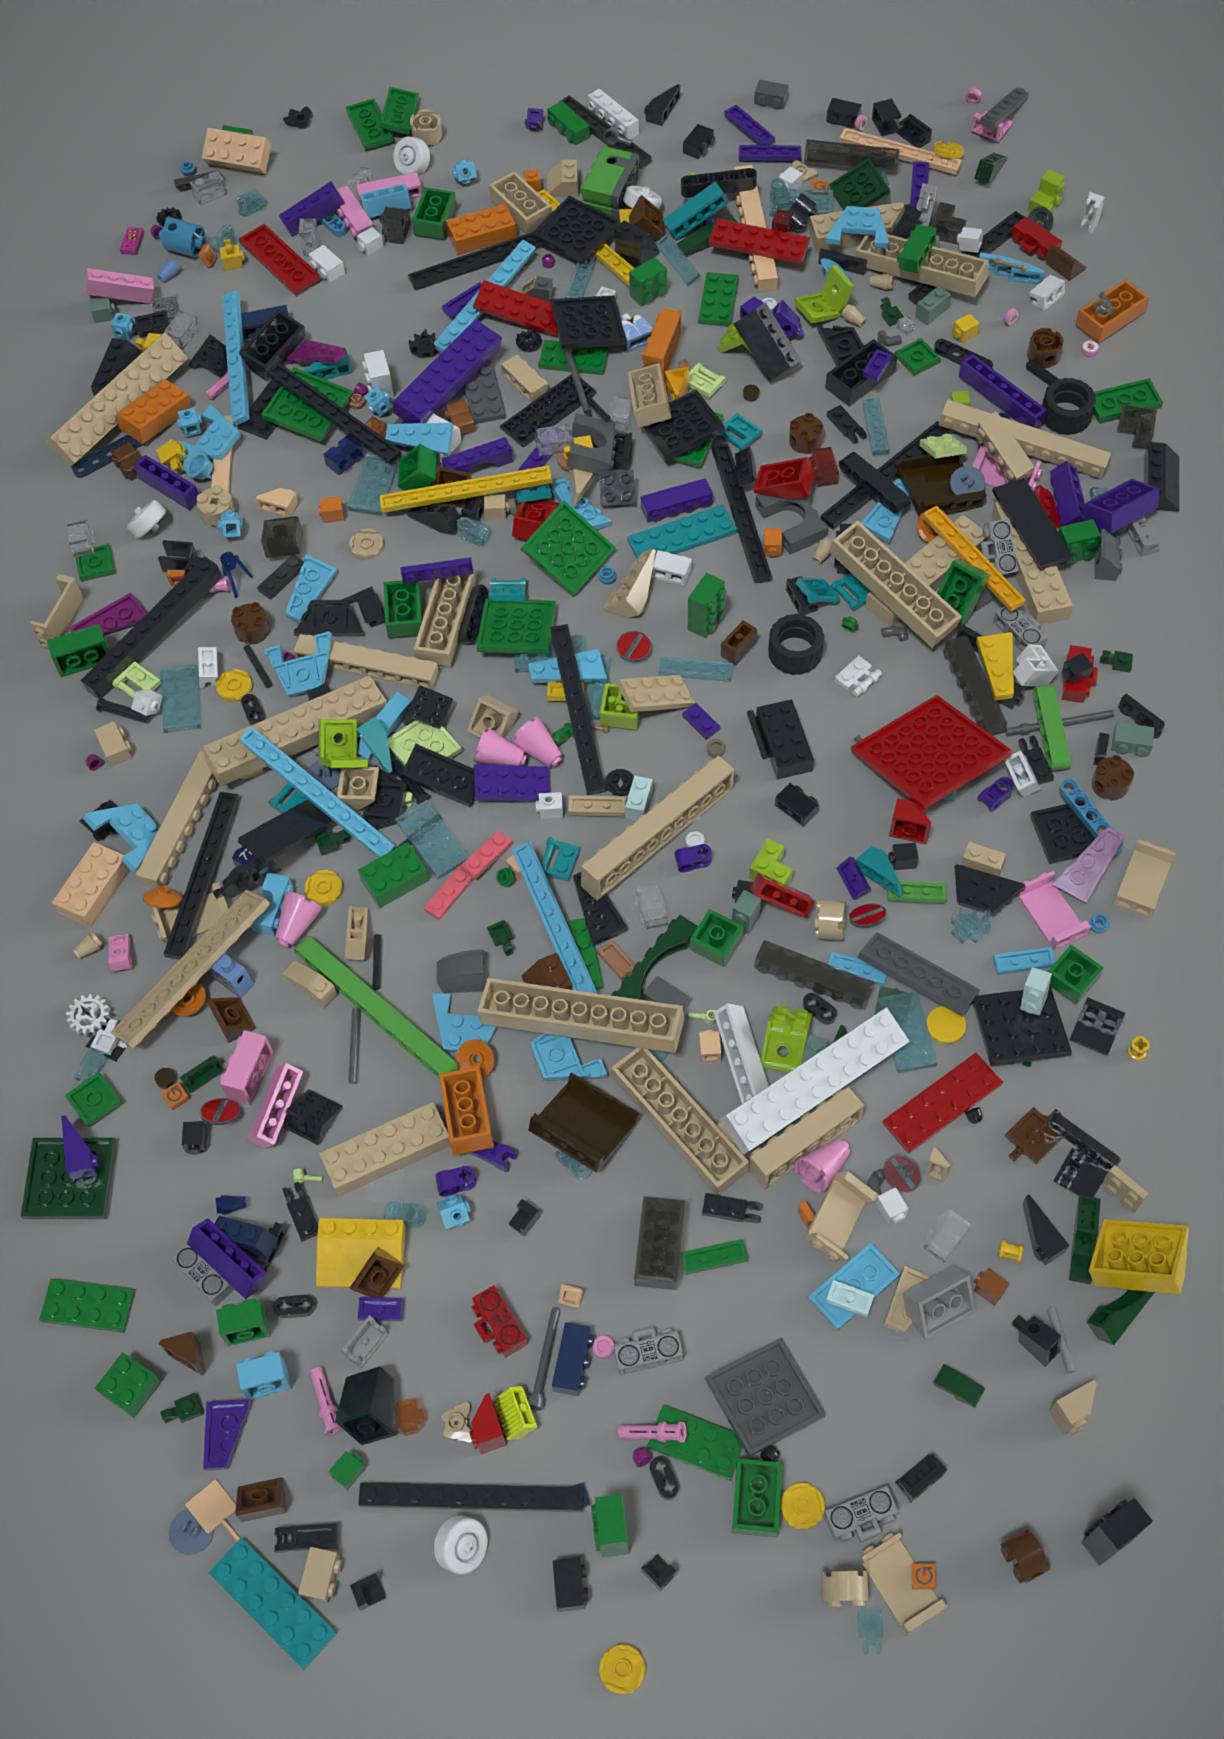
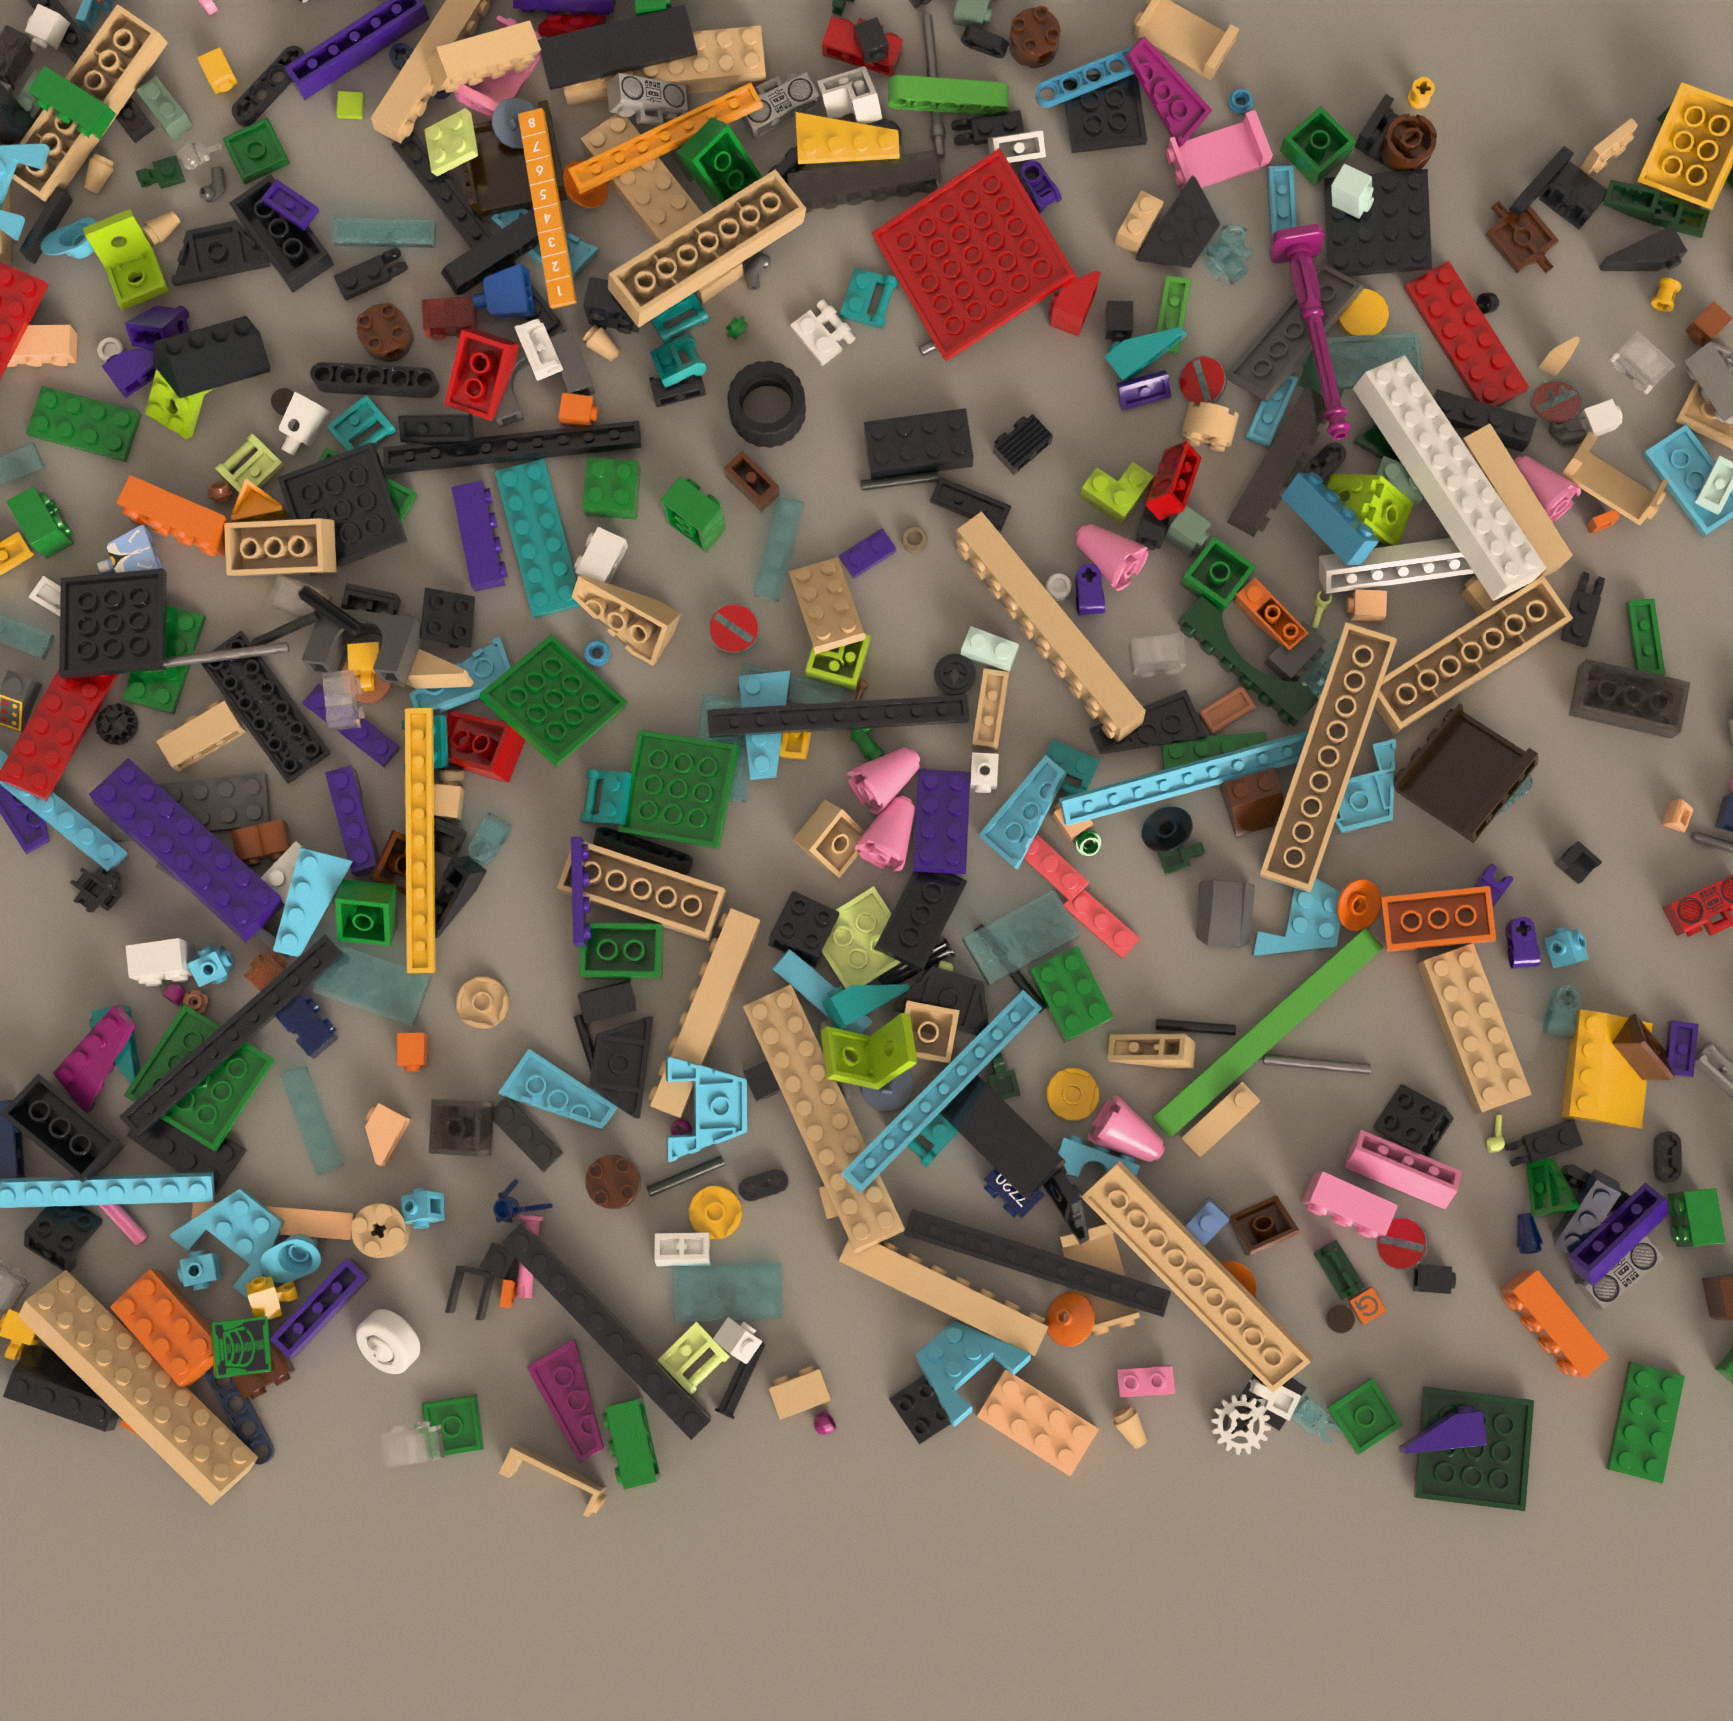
camera: 85 degrees left, 20 degrees up
(139, 440) = (240, 1347): none -> tile
(159, 1220) = (1553, 1323): none -> orange brick
(263, 1210) = (1548, 1189): none -> green wing
(285, 467) = (311, 1120): none -> clear light blue tile
(518, 828) = (1022, 814): none -> medium azure wing
(520, 924) = (1163, 822): none -> black dish
(610, 422) = (330, 611): none -> black axle
(691, 973) = (1270, 615): none -> orange slope
(720, 868) = (1112, 554): none -> bright pink cone
(722, 563) = (611, 488): none -> green brick
(737, 399) = (302, 423): none -> white torso
(747, 780) = (969, 502): none -> black tile
(768, 1001) = (1330, 518): none -> dark azure brick
(773, 430) = (365, 372): none -> black beam
(807, 507) = (538, 349): none -> white hinge
(844, 490) = (507, 294): none -> blue torso
(873, 1114) = (1511, 427): none -> black arch
(889, 696) = (860, 297): none -> teal plate
(905, 497) = (547, 208): none -> light orange tile
(985, 965) = (1298, 247): none -> magenta piece
(1089, 1035) = (1408, 143): none -> reddish brown brick

